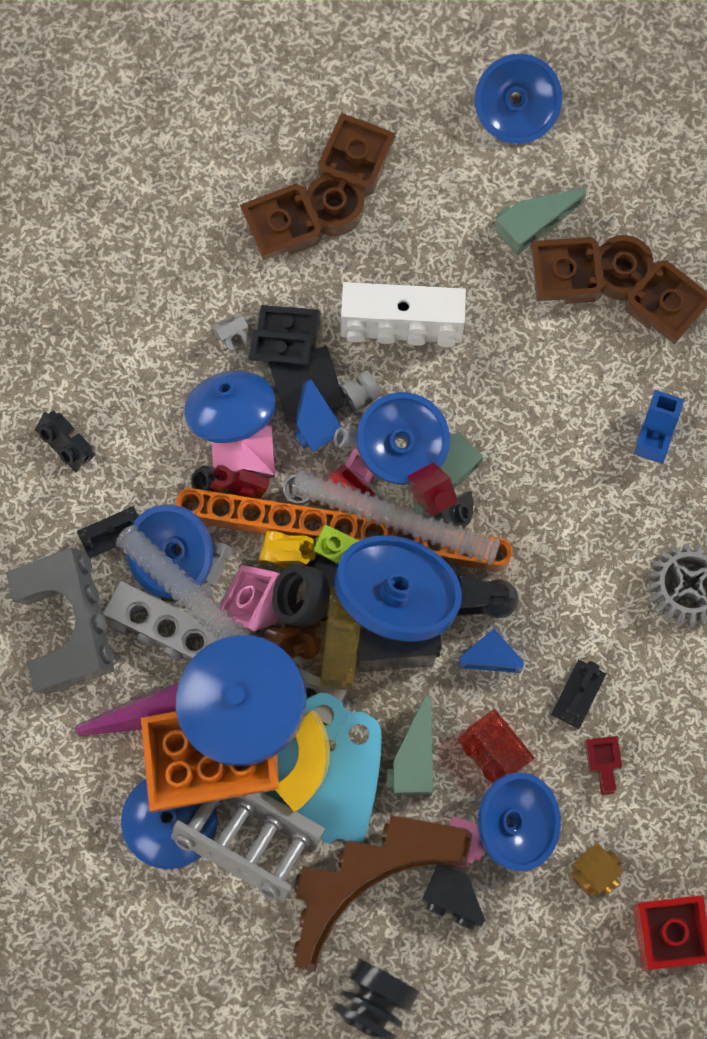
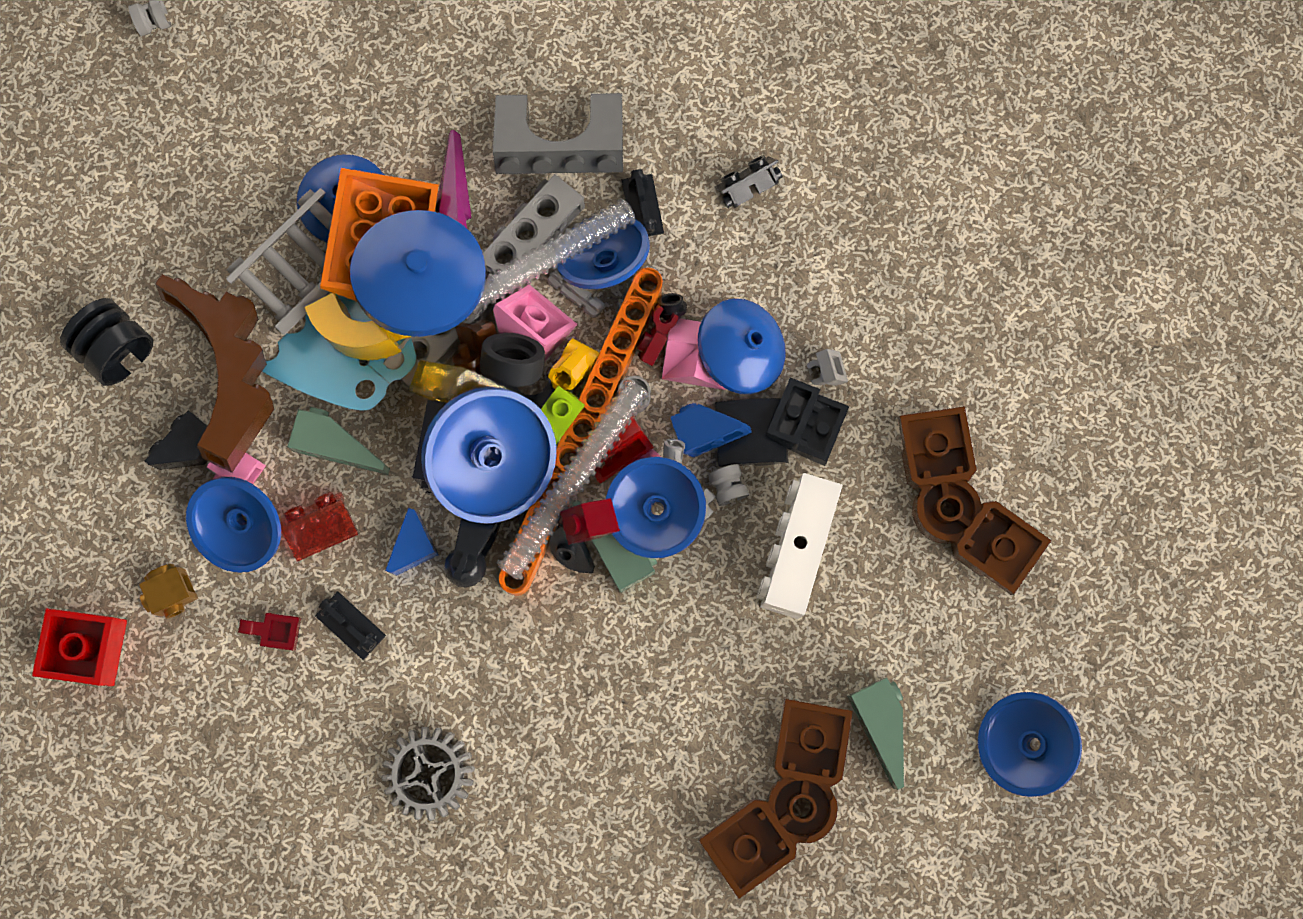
camera: 105 degrees right, 5 degrees up
(658, 426) = (605, 790): blue brick -> none

